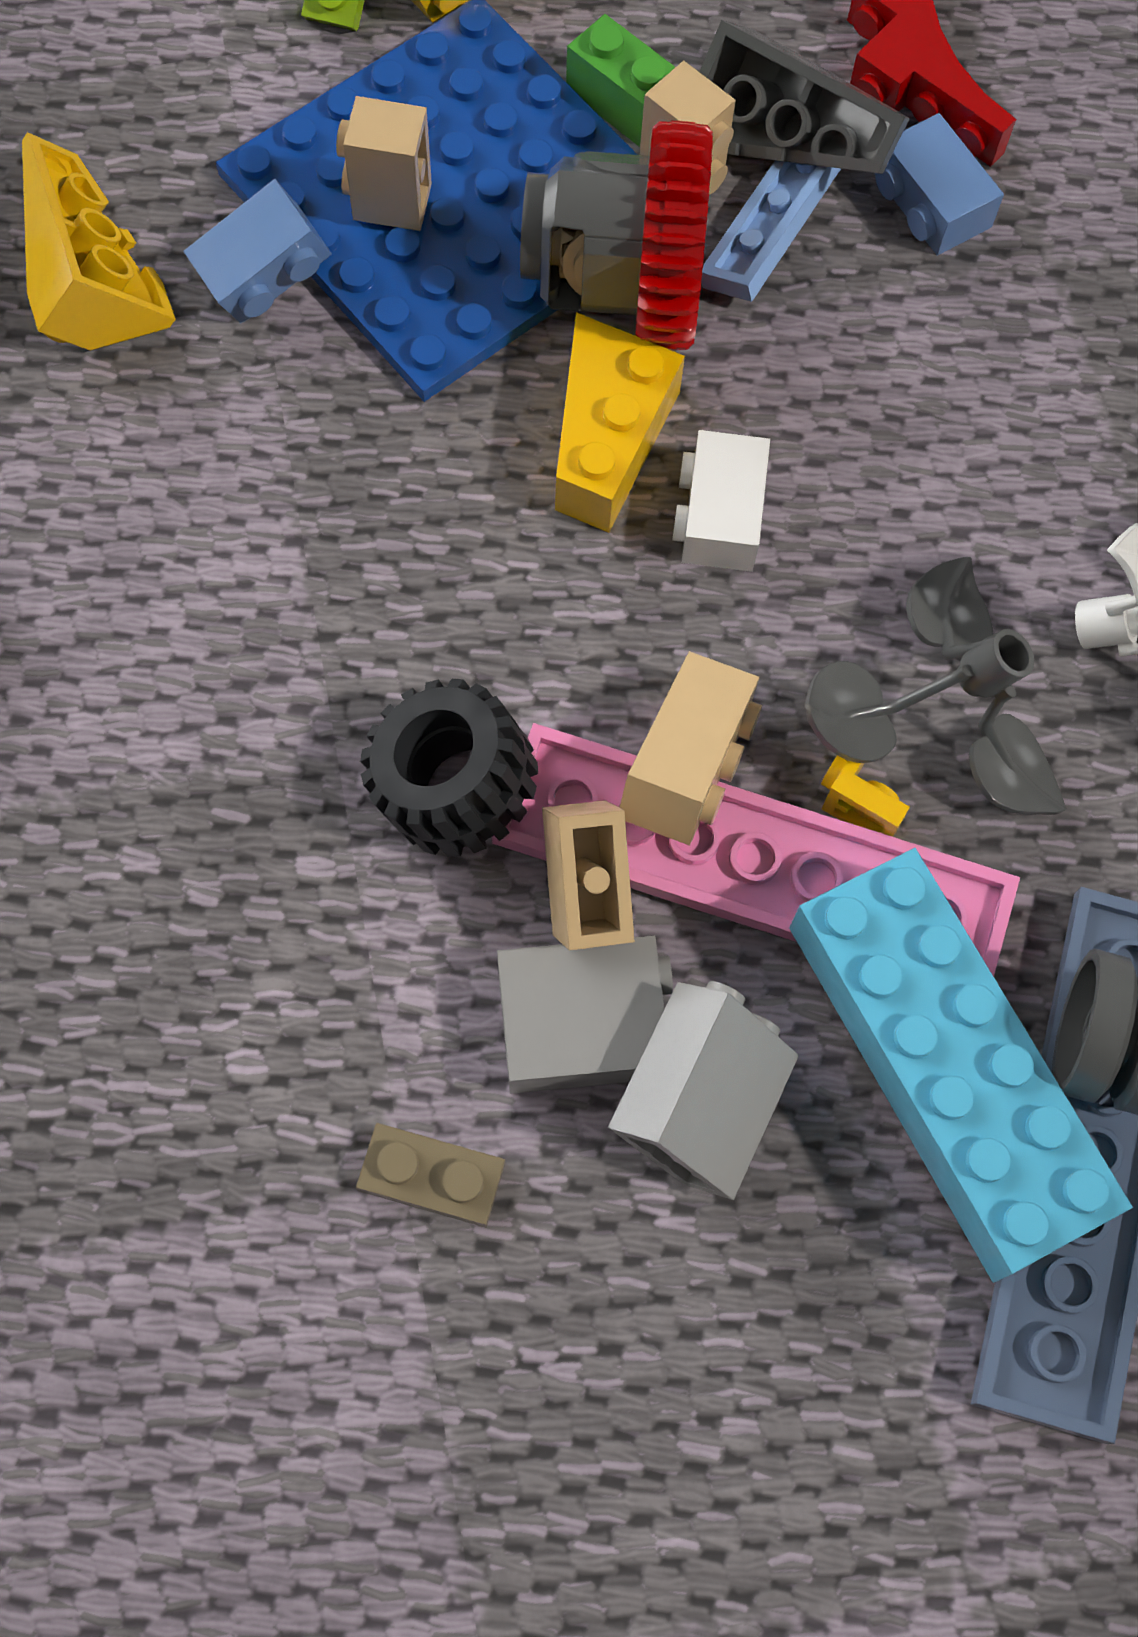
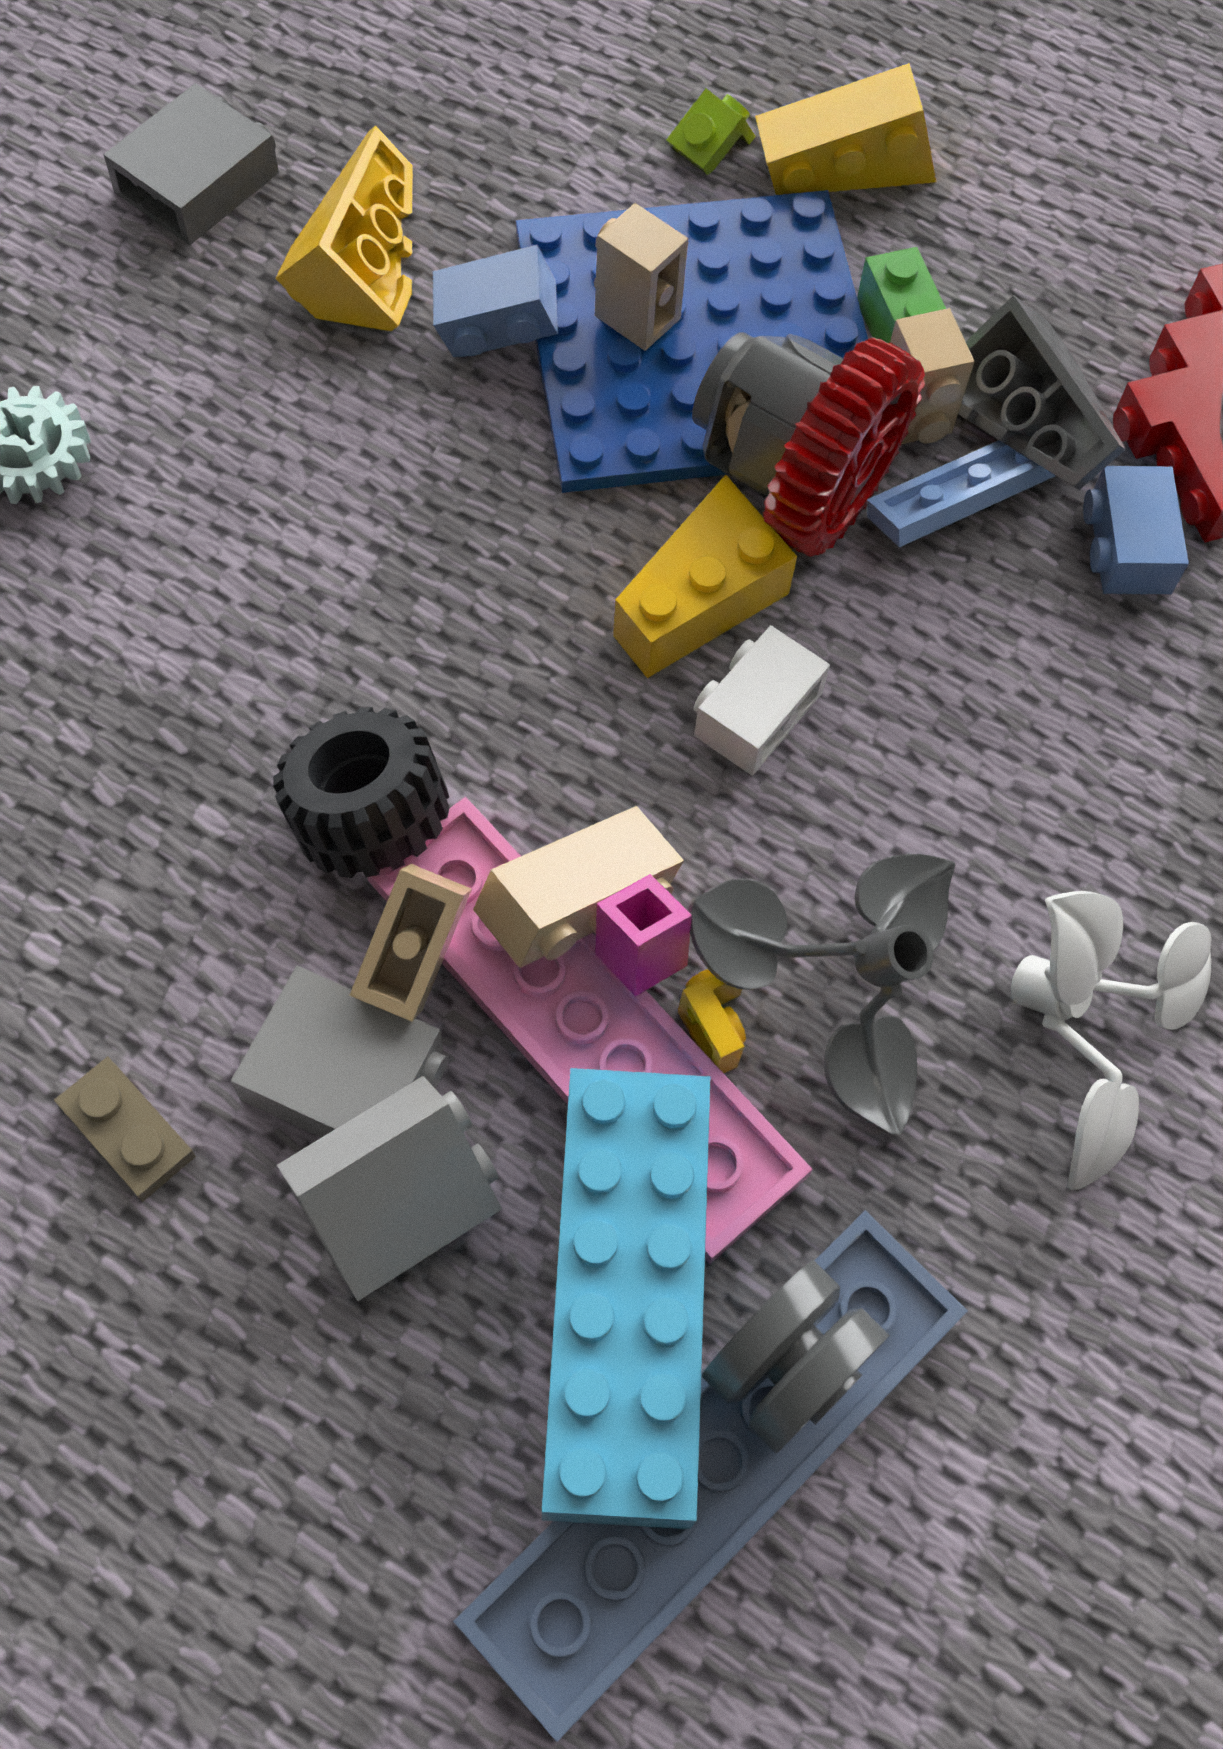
camera: 30 degrees right, 5 degrees down
(775, 759) = (642, 934): none -> dark pink brick

